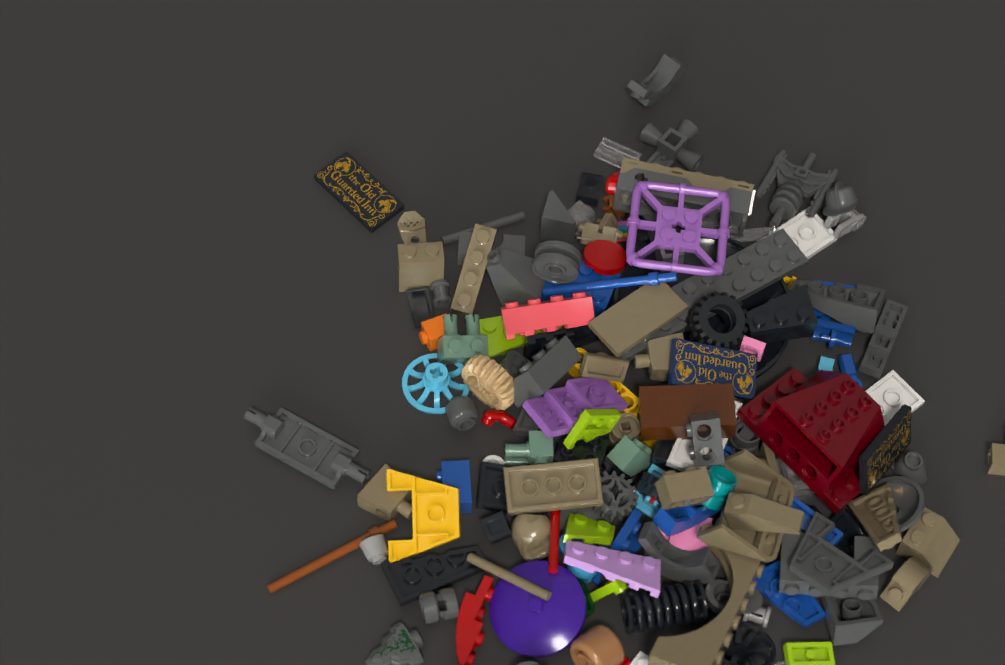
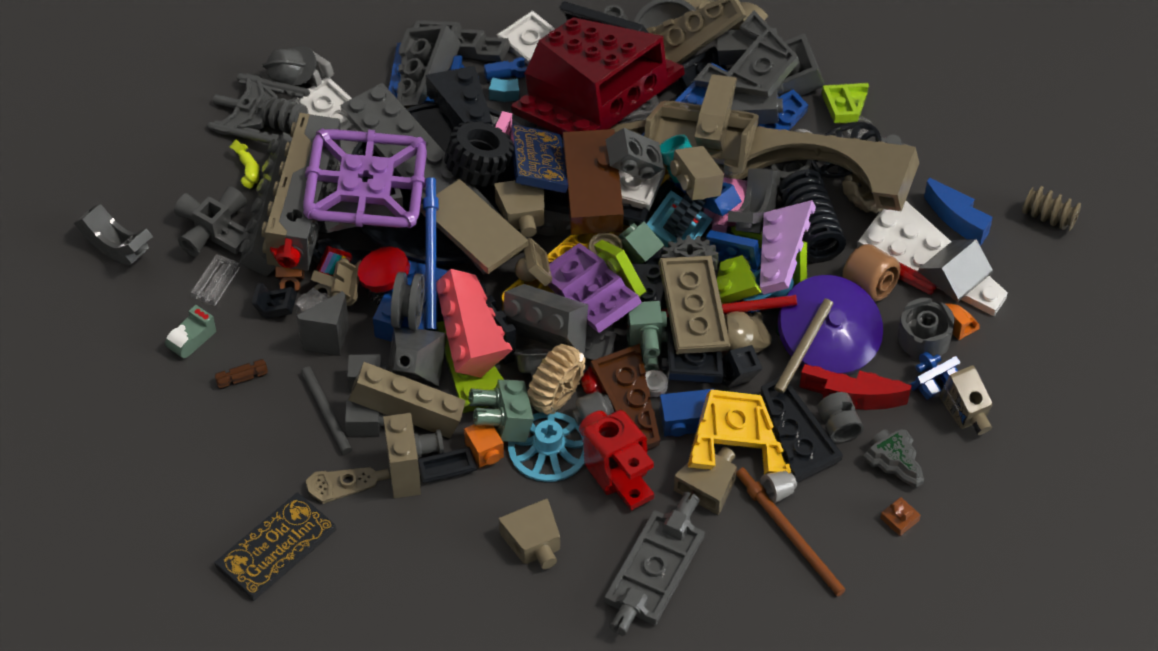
camera: 90 degrees left, 5 degrees down
(338, 647) = (900, 516): none -> dark orange tile
(346, 362) = (532, 533): none -> dark tan torso
(409, 420) = (622, 440): none -> red piece
(473, 441) = (625, 383): none -> reddish brown wing
(521, 170) = (241, 373): none -> reddish brown axle
(561, 136) = (191, 332): none -> sand green leg
(741, 176) = (251, 166): none -> neon yellow arm

